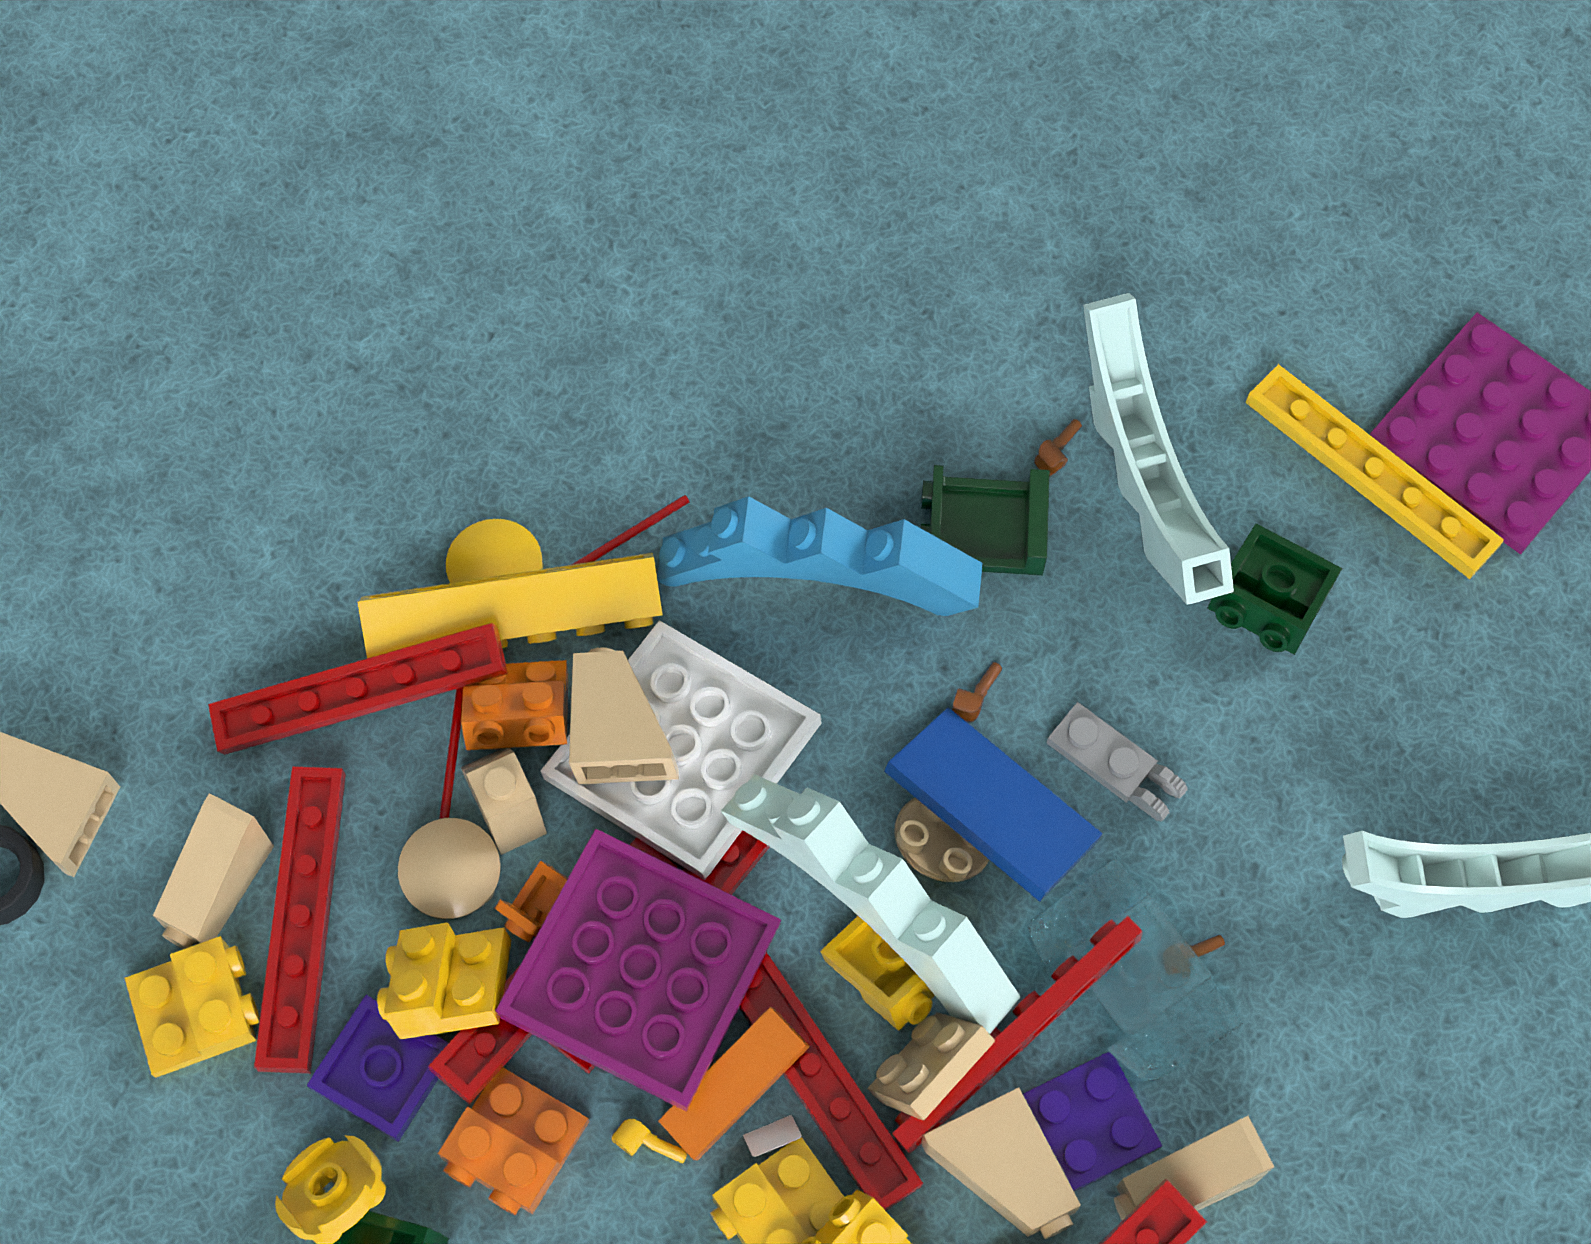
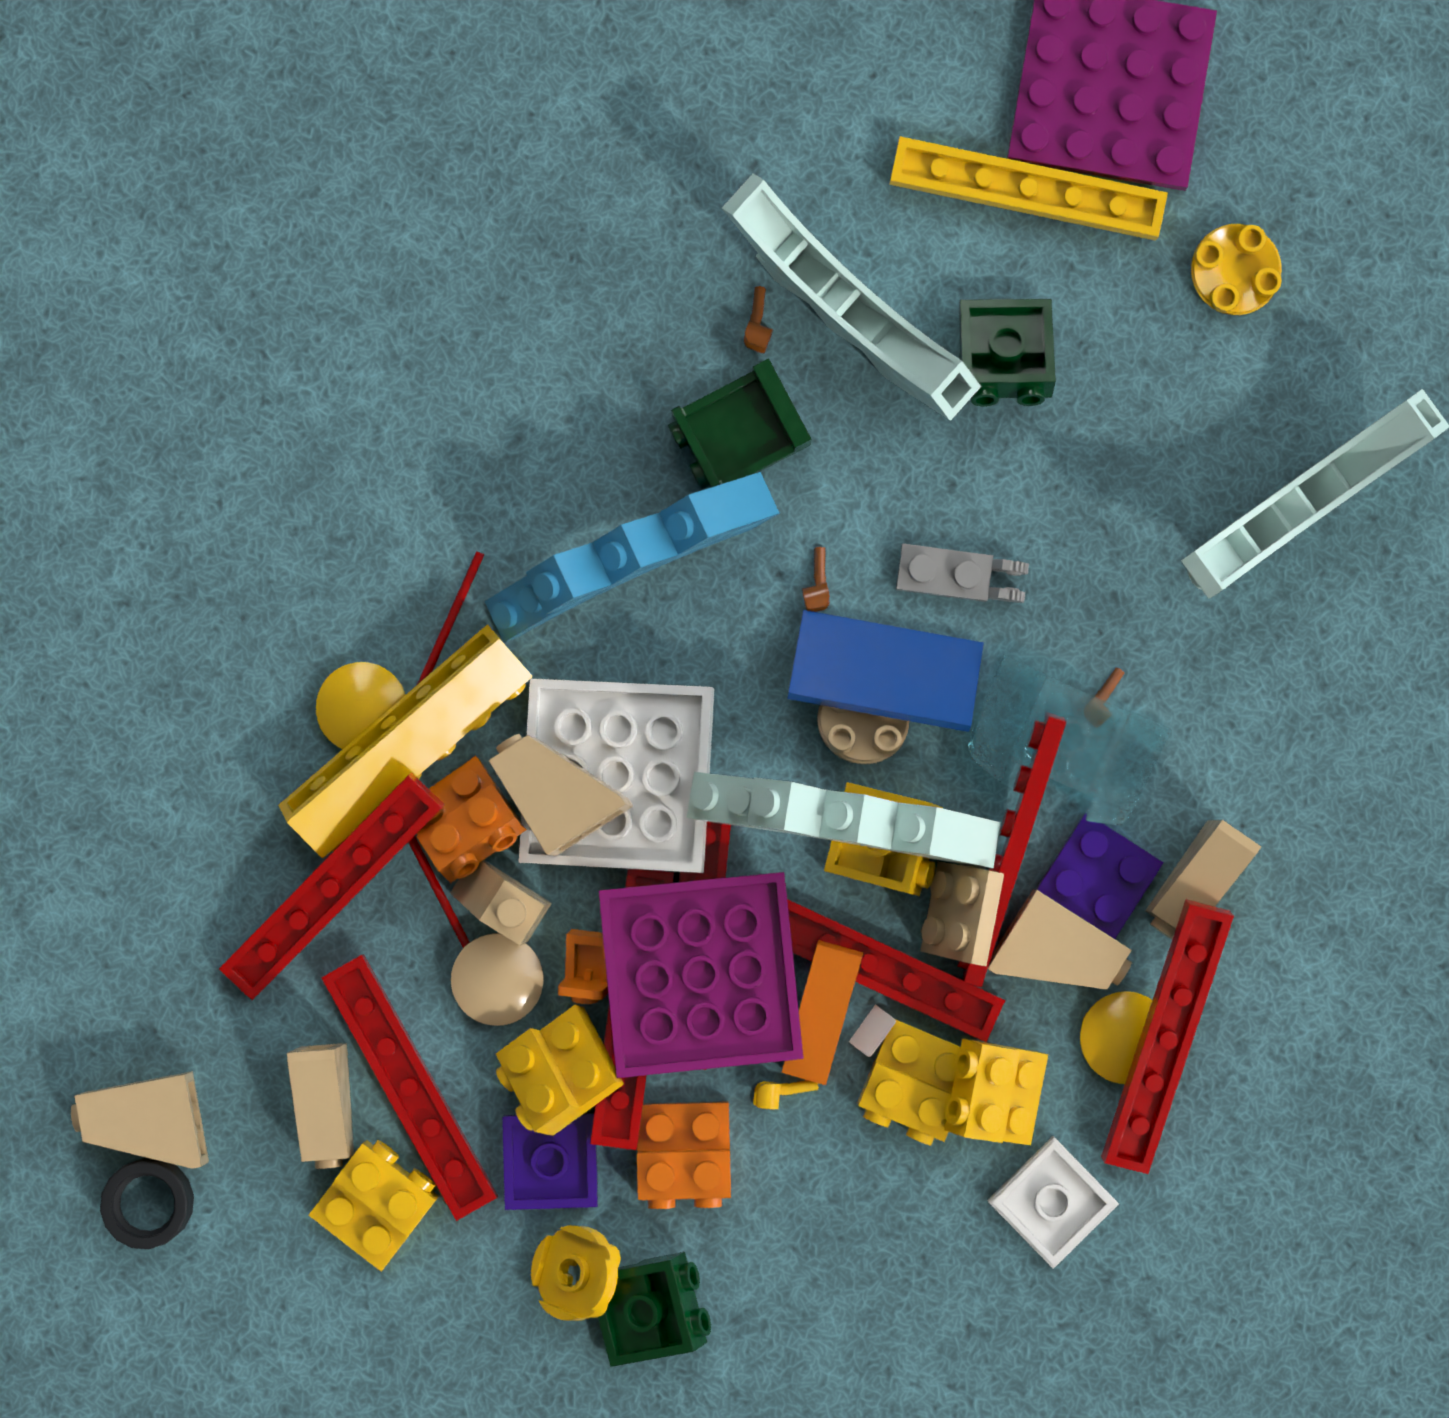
camera: 25 degrees left, 20 degrees up
(1535, 643) = (1236, 269): none -> yellow dish

